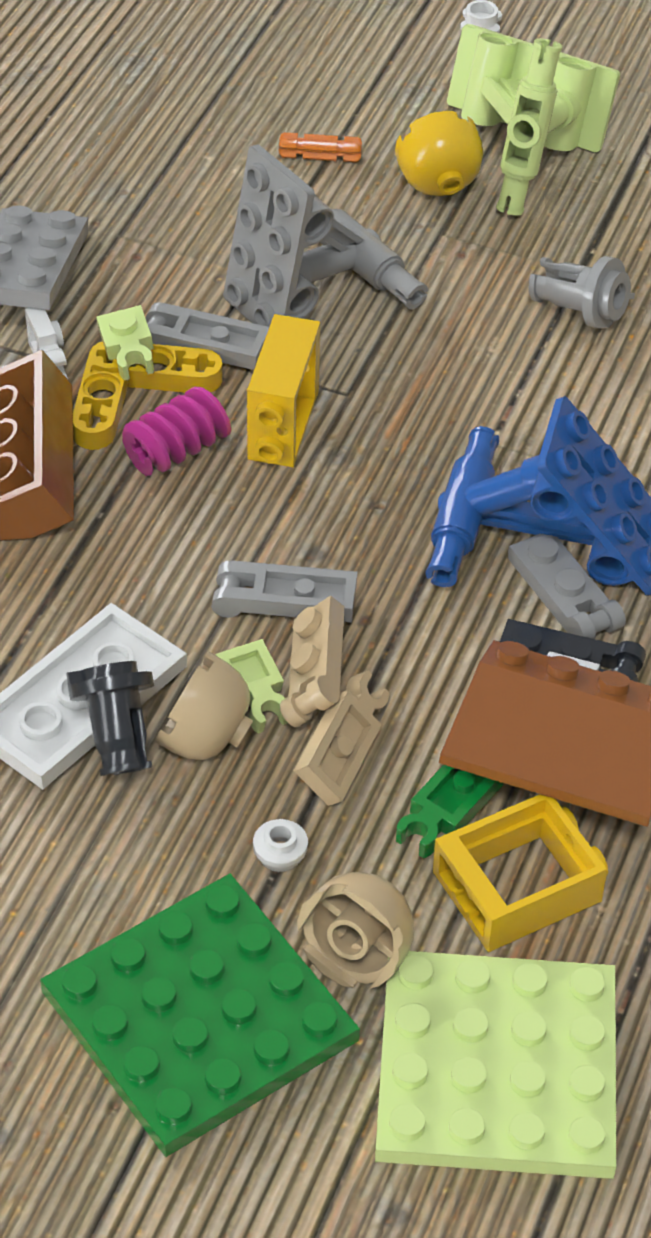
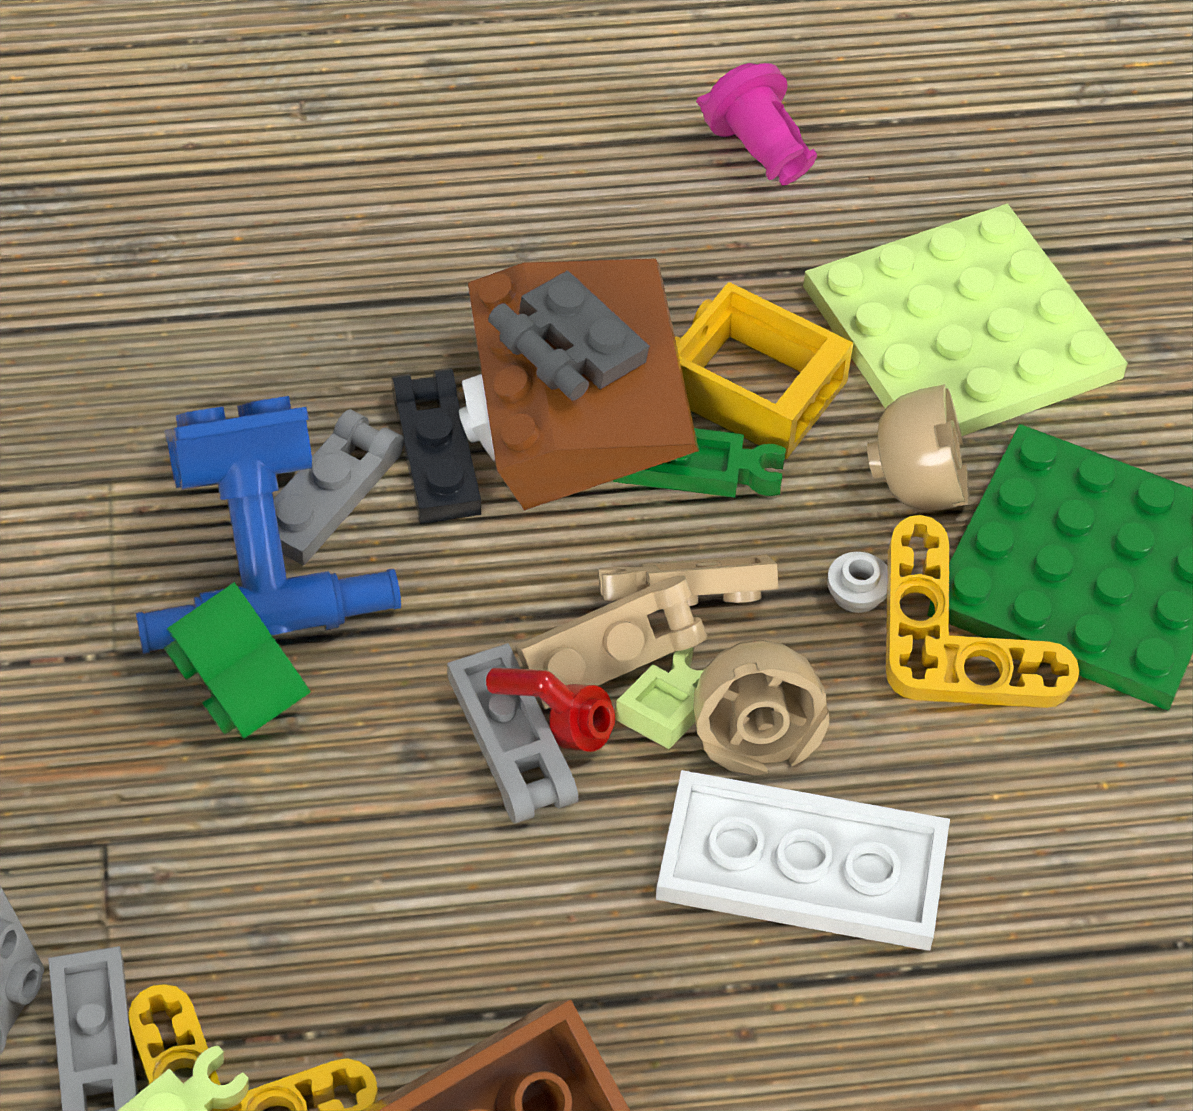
camera: 120 degrees left, 5 degrees up
(115, 713) = (825, 770): black piece -> none
(175, 430) = (317, 968): dark pink piece -> none
(179, 856) = (948, 654): none -> yellow beam
(270, 617) = (579, 713): none -> red plate
(283, 390) = (198, 853): yellow window -> none
(415, 462) = (236, 662): none -> green brick
(579, 716) = (582, 329): none -> dark grey plate

